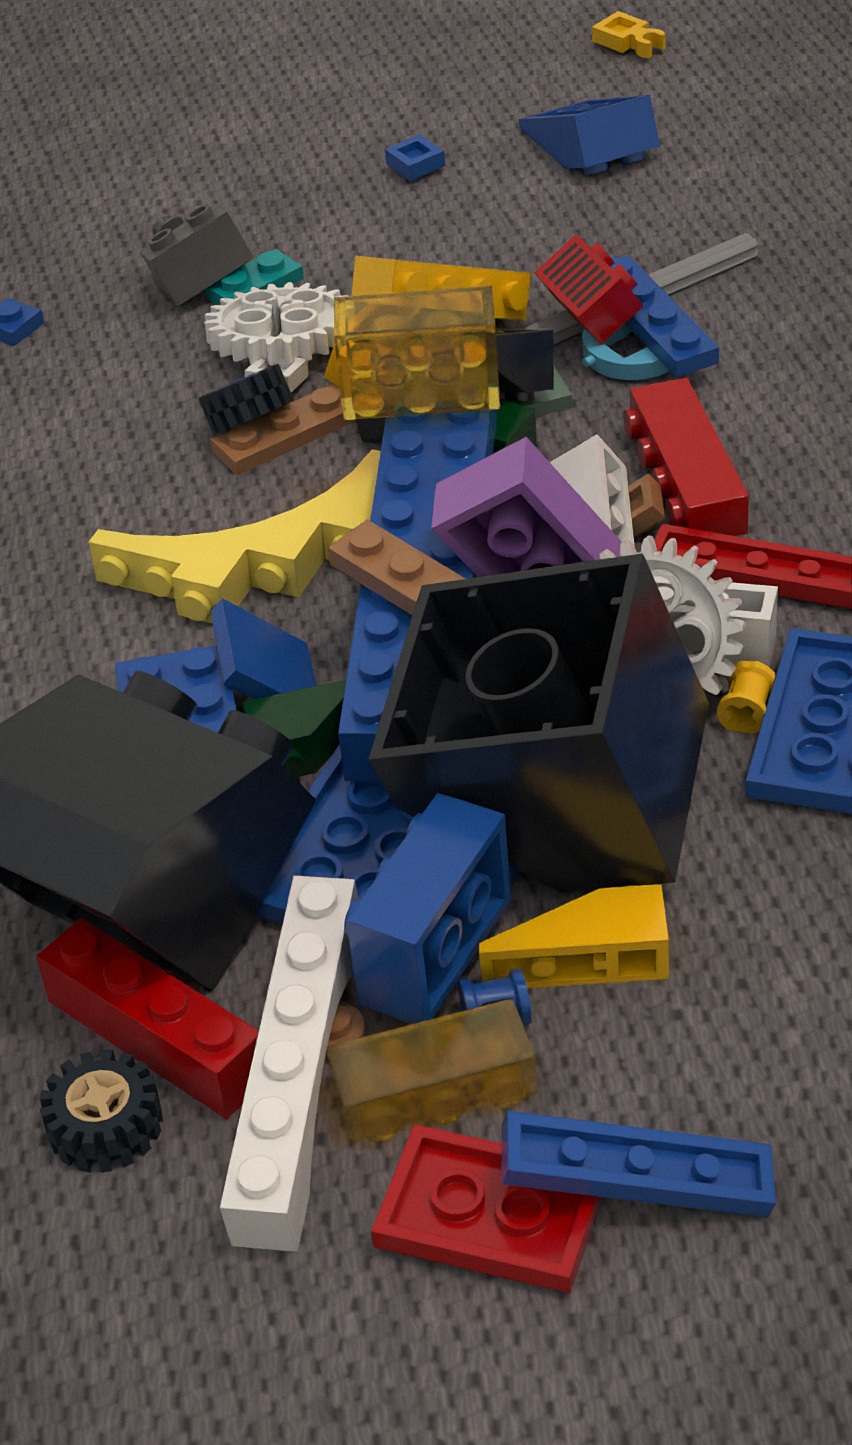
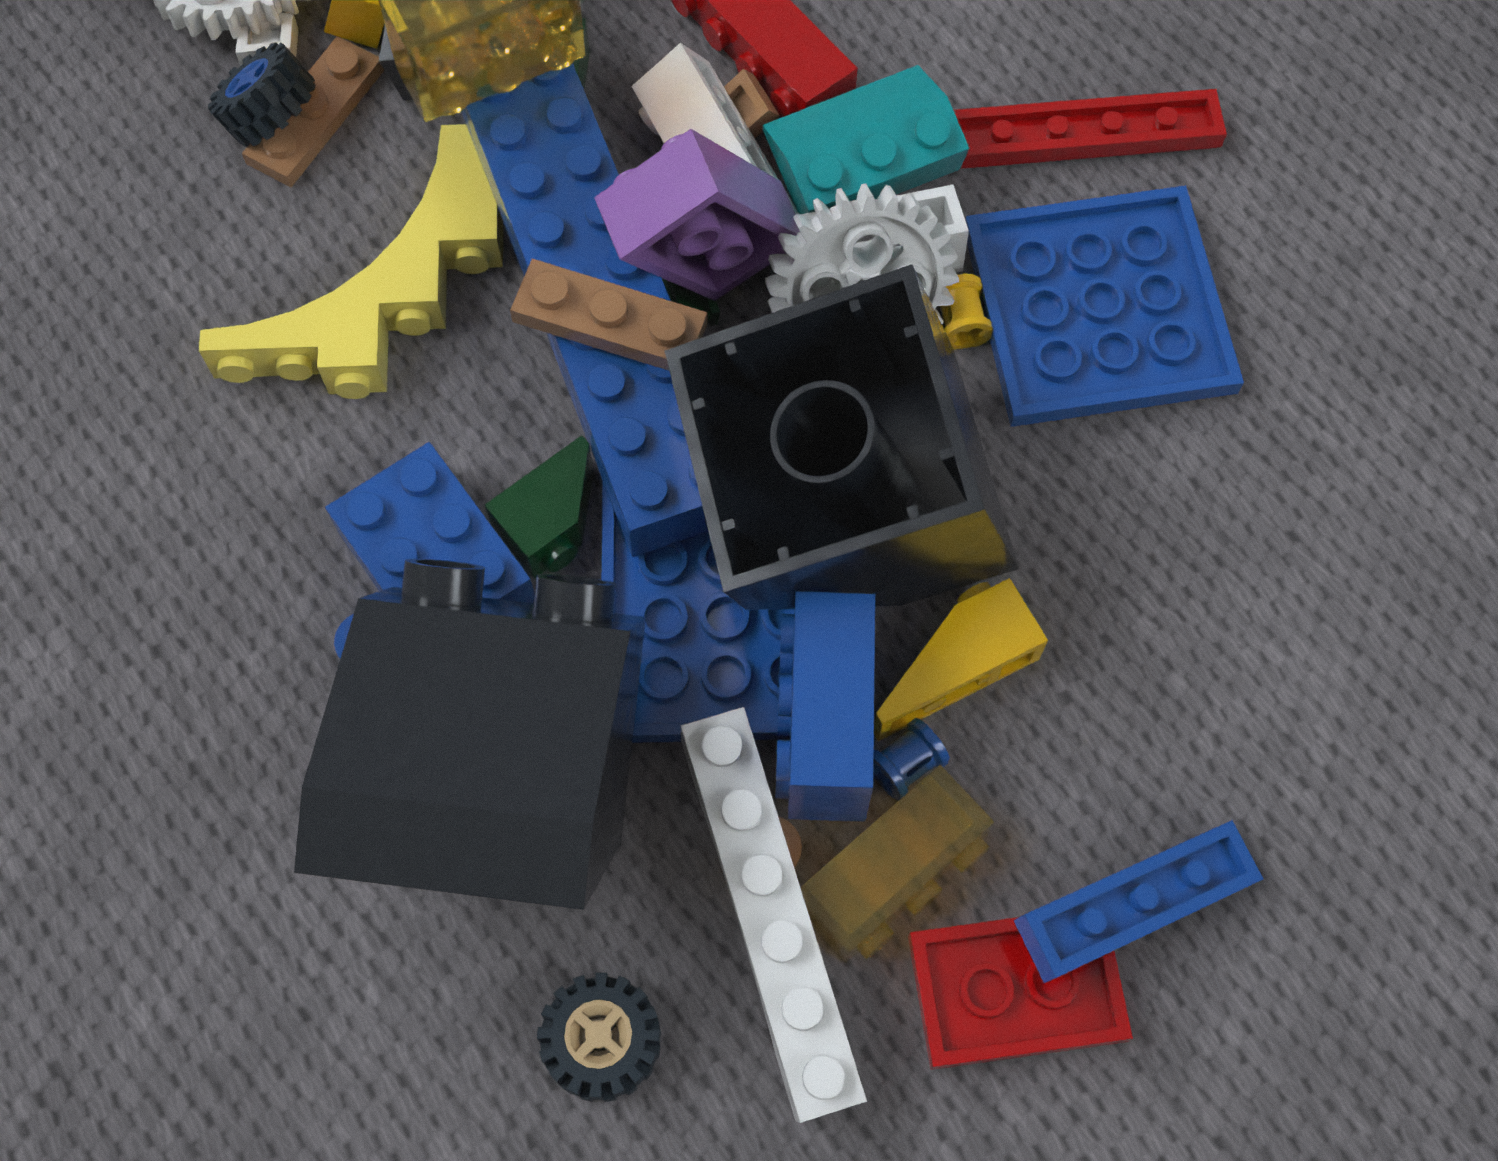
camera: 30 degrees left, 25 degrees up
(150, 1015) = (621, 924): red brick -> none
(258, 655) = (471, 439): blue tile -> none
(748, 541) = (875, 135): none -> teal slope

